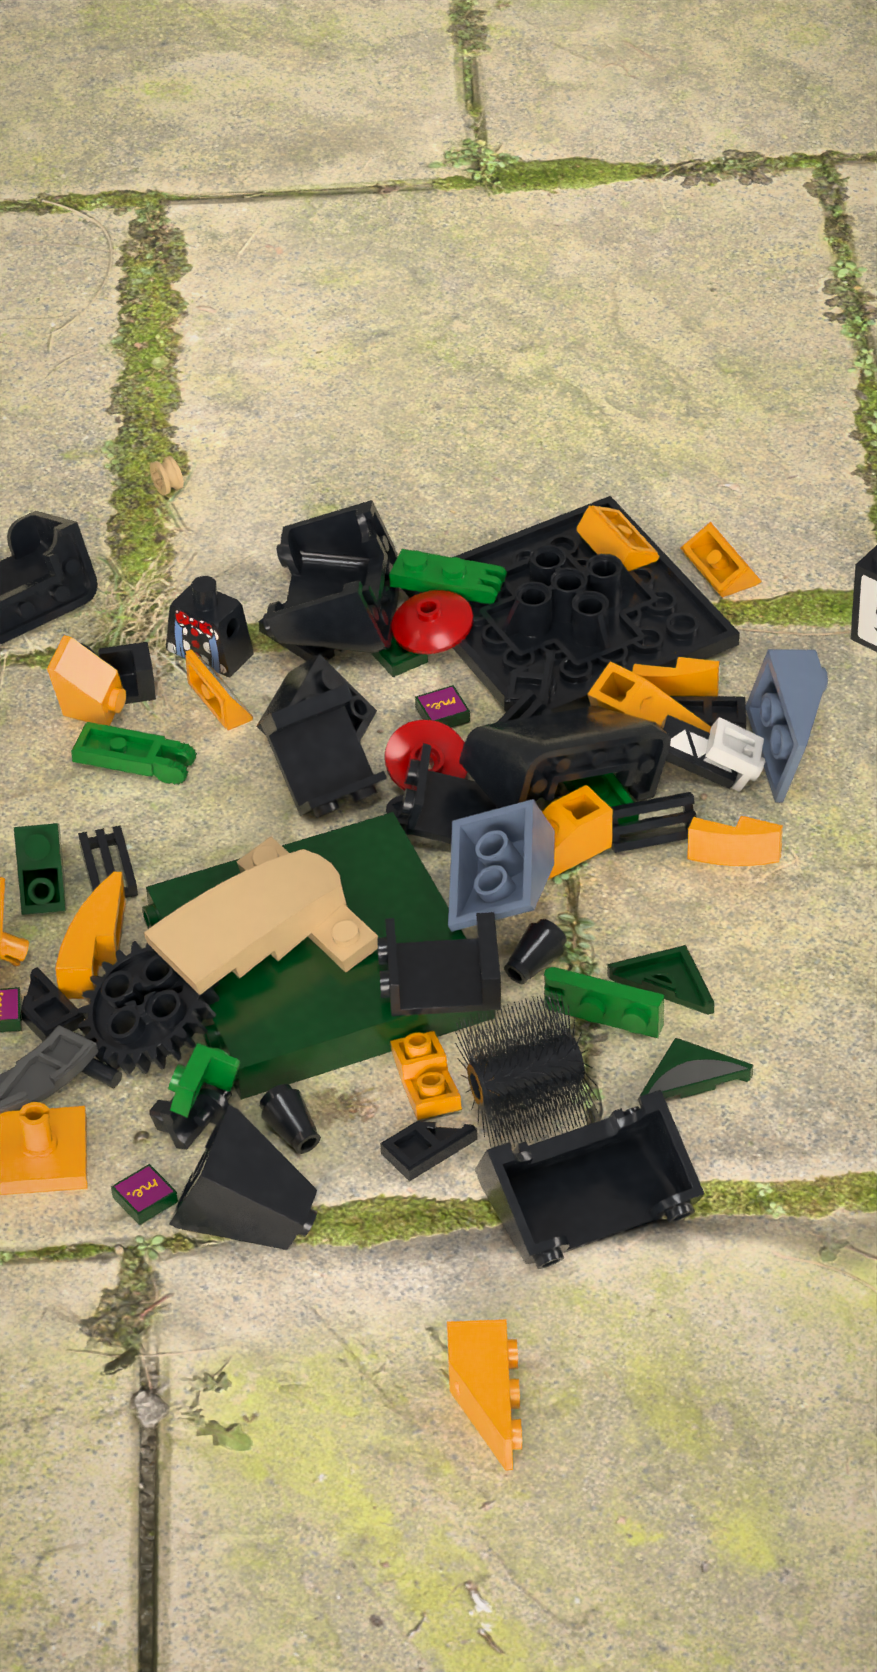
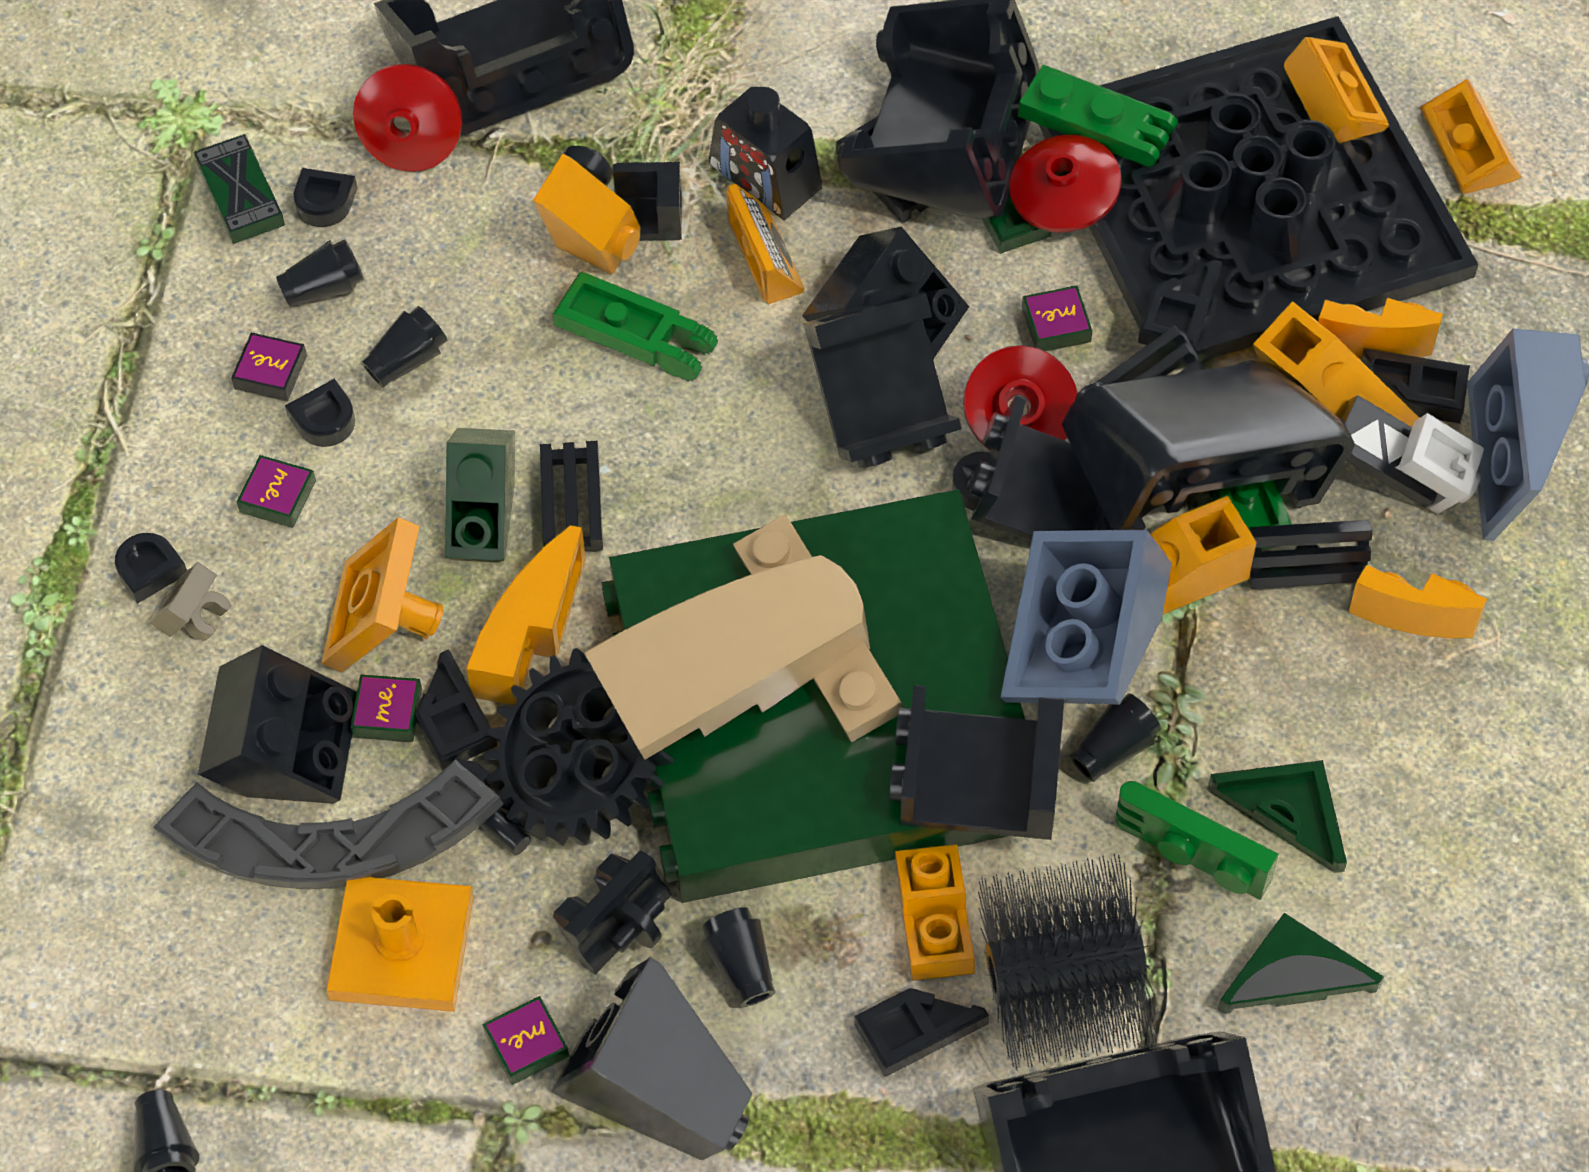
camera: 10 degrees right, 15 degrees up
(206, 1066) = (605, 896): green bracket -> none

